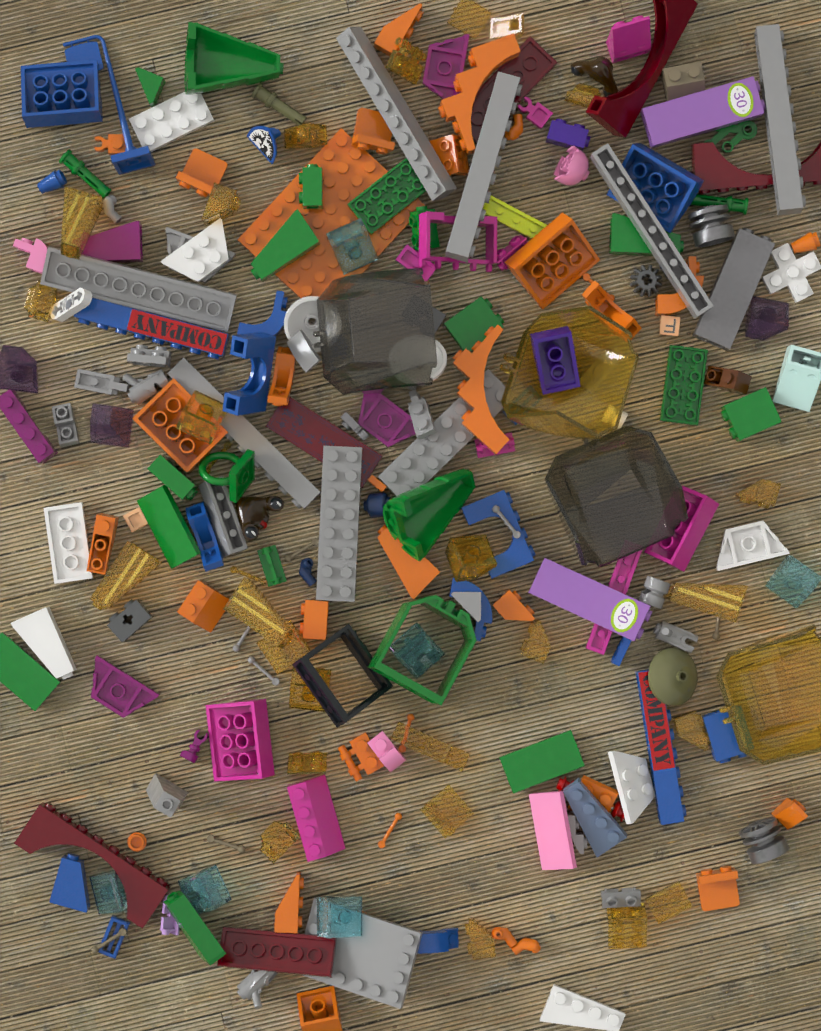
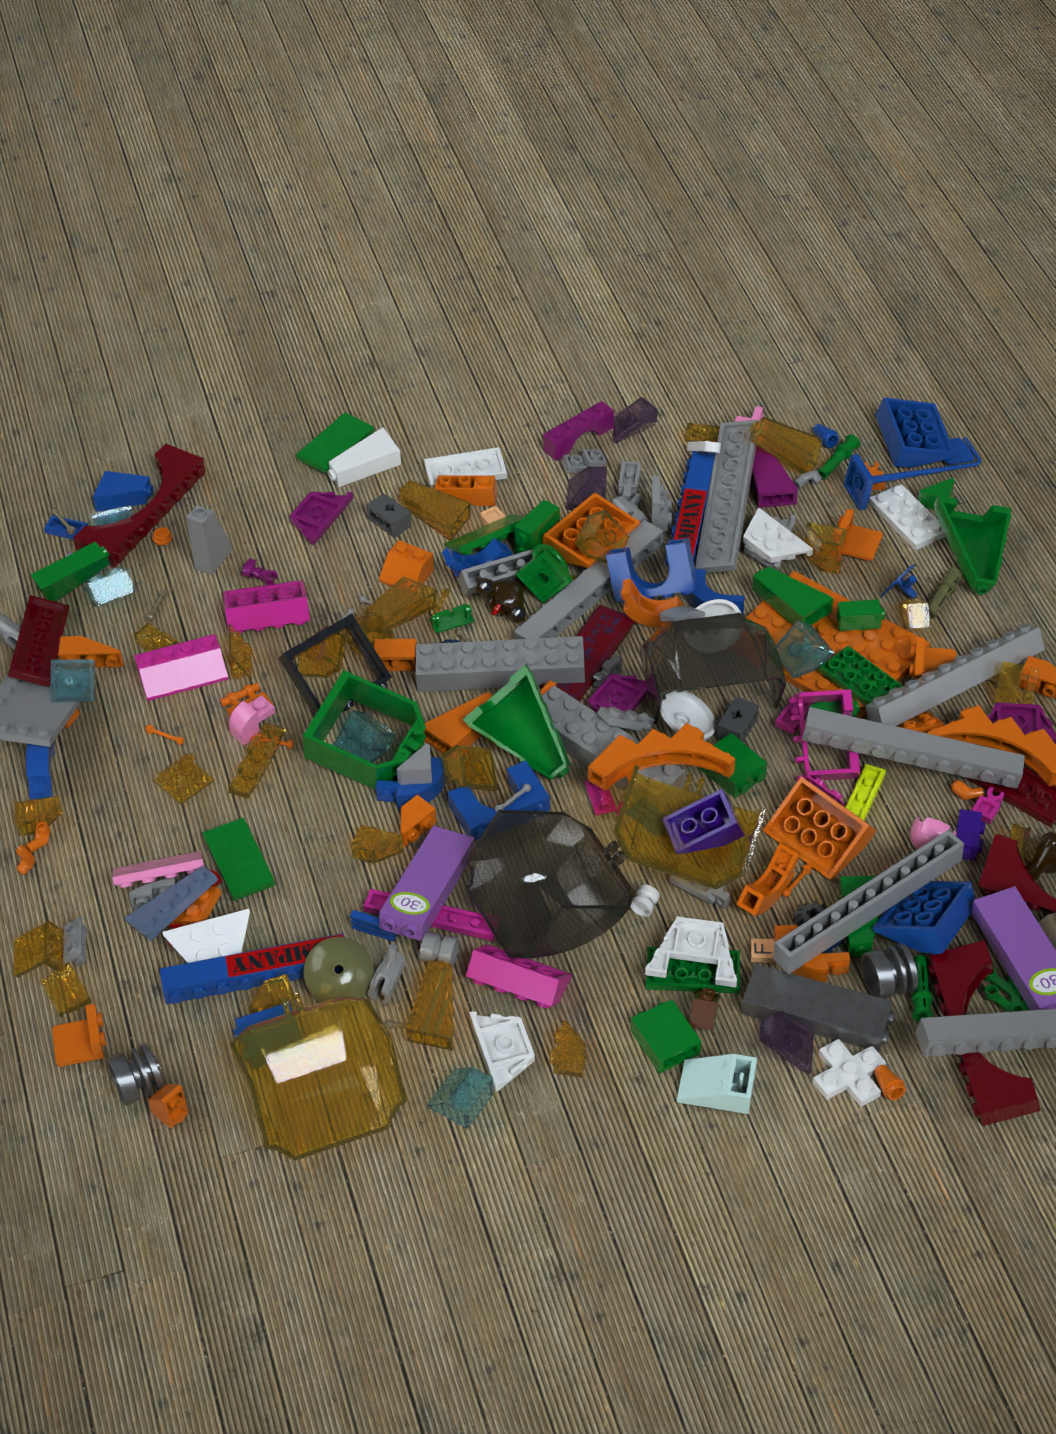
camera: 90 degrees right, 40 degrees down
(669, 378) = (697, 942): none -> white wing

